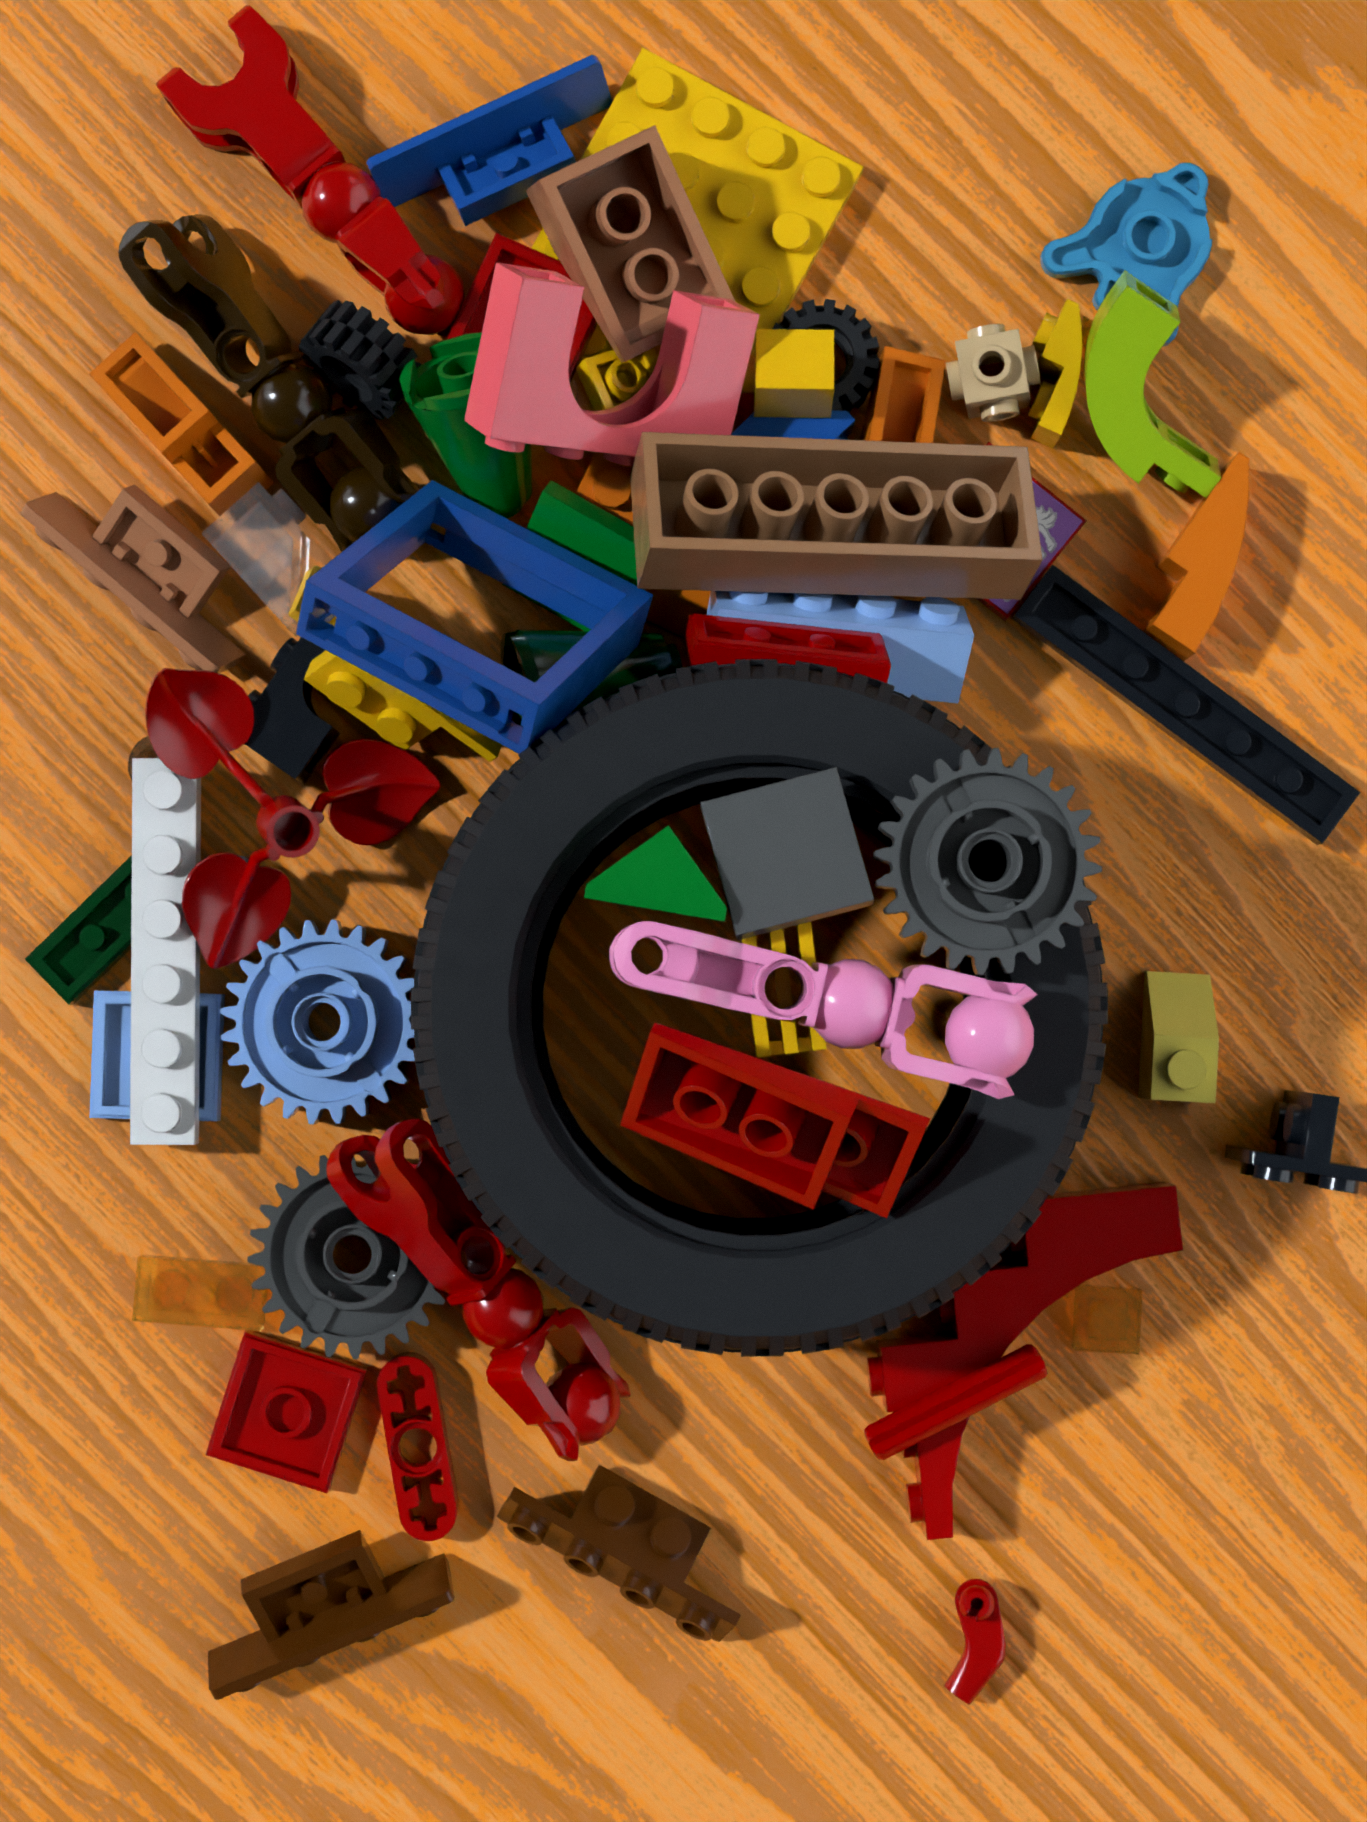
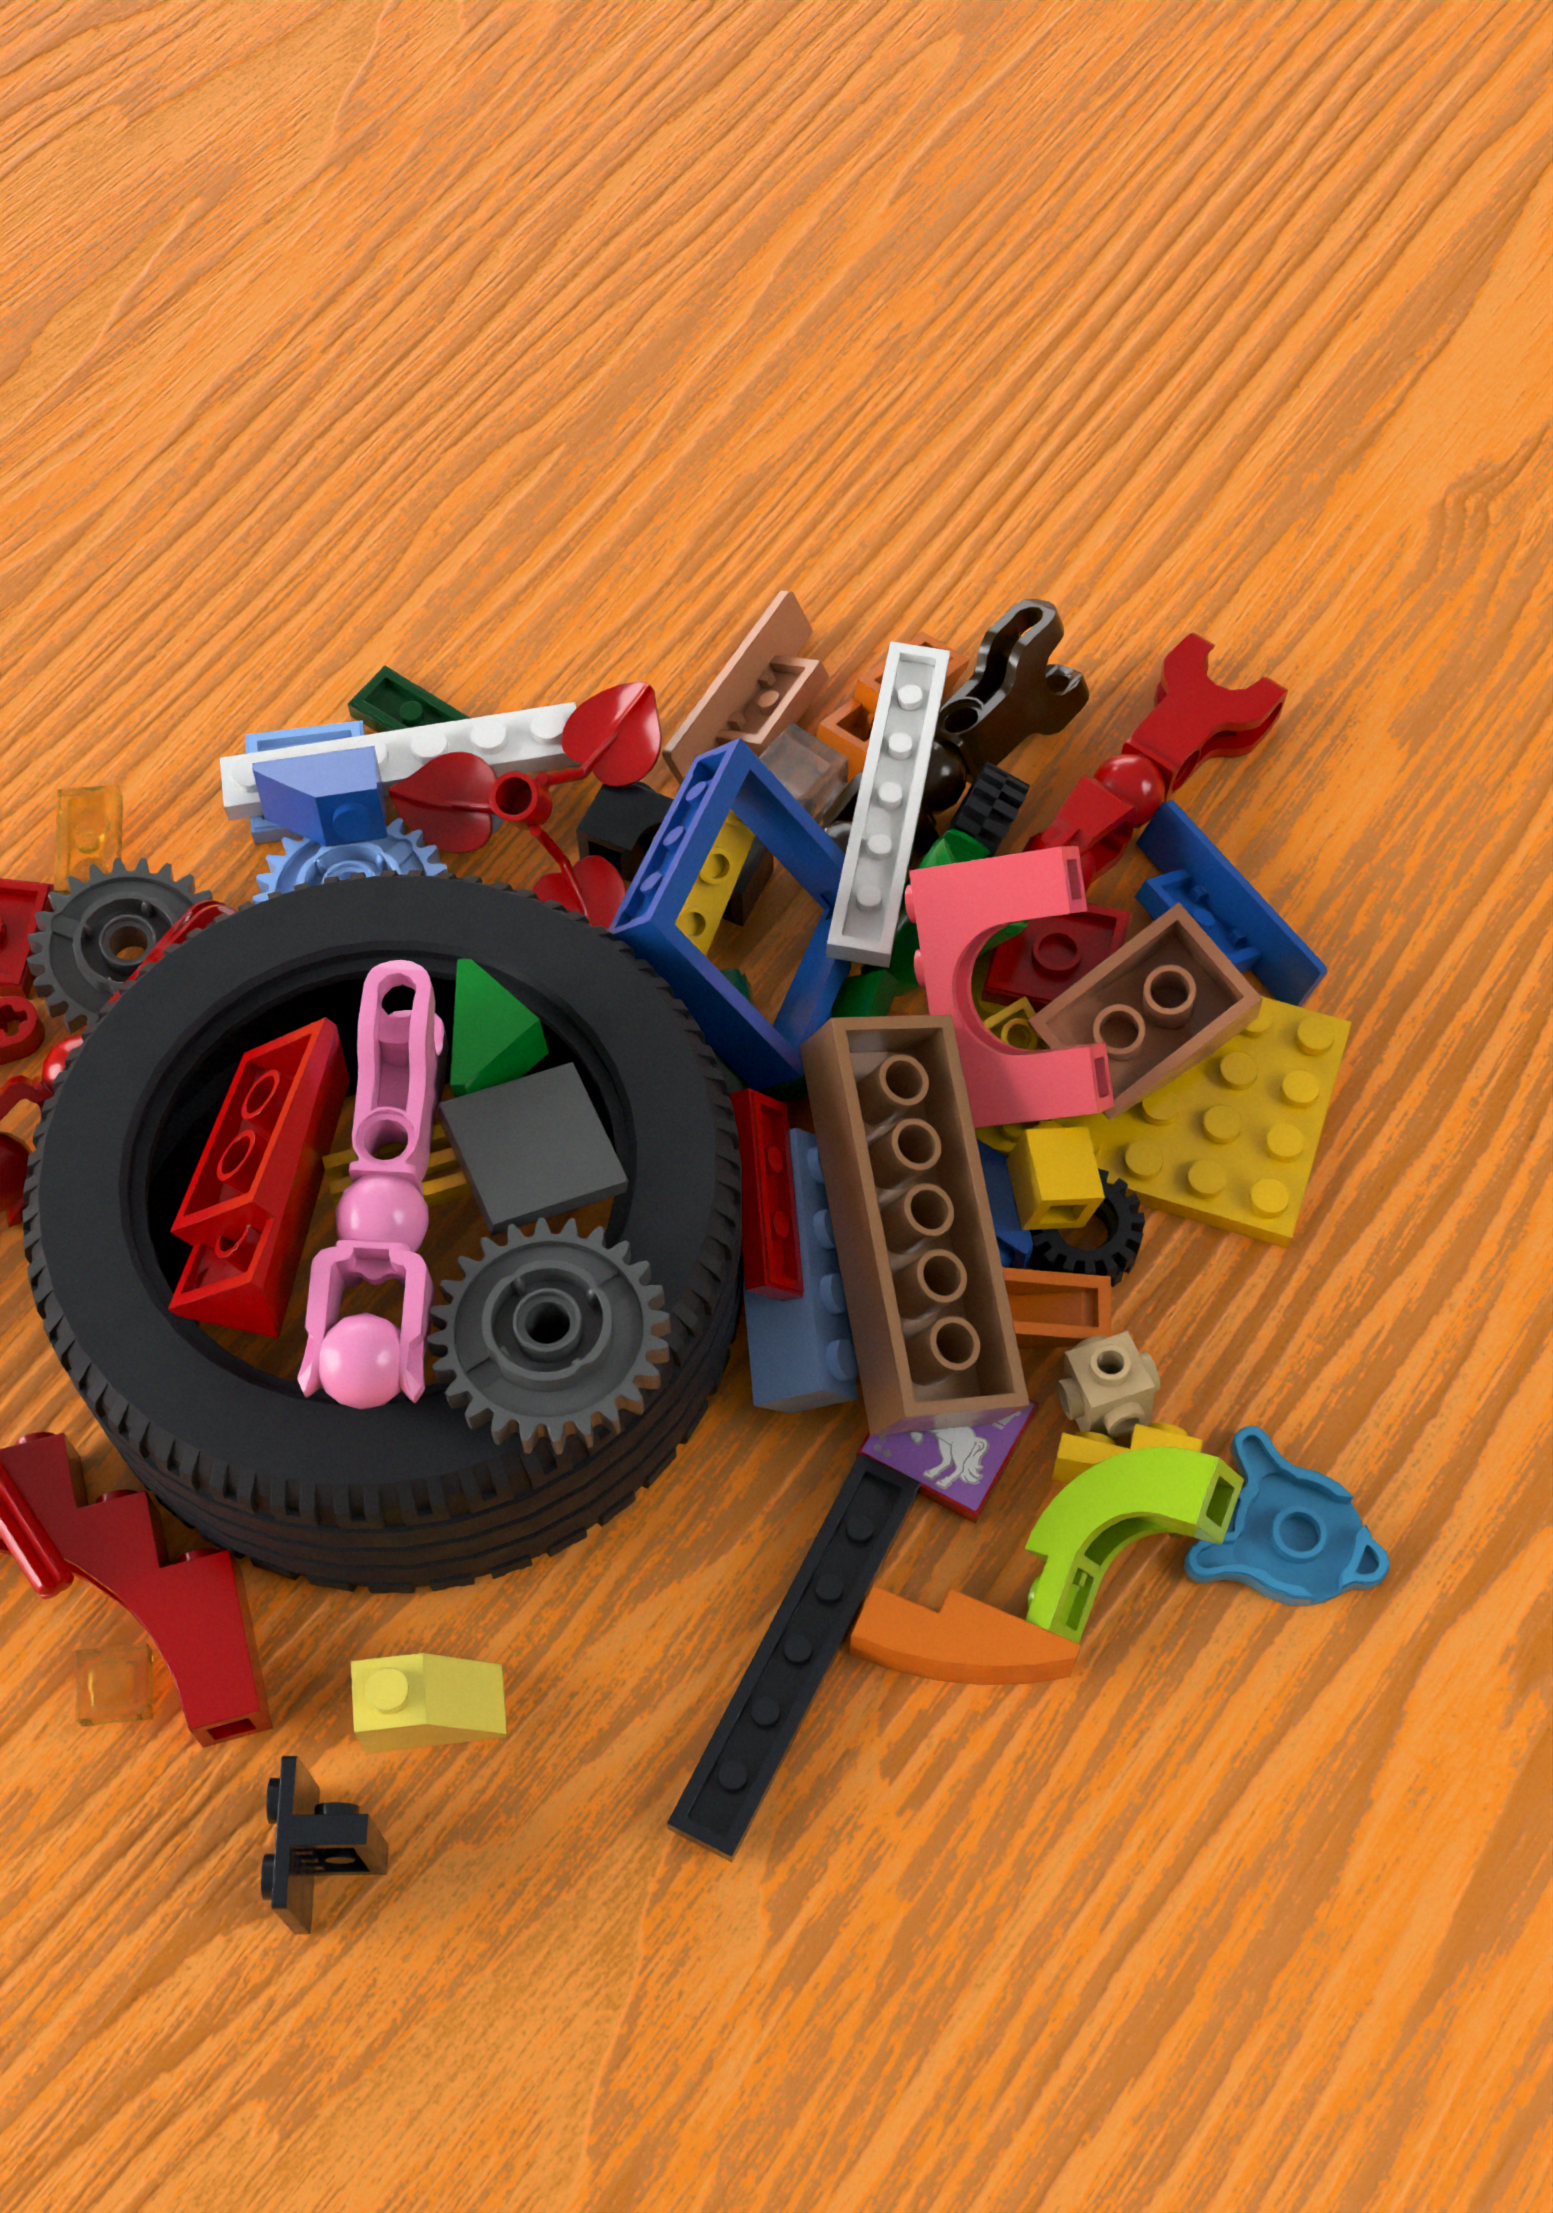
camera: 80 degrees right, 25 degrees down
(216, 1032) = (325, 795): none -> blue slope
(347, 446) = (888, 806): none -> white plate

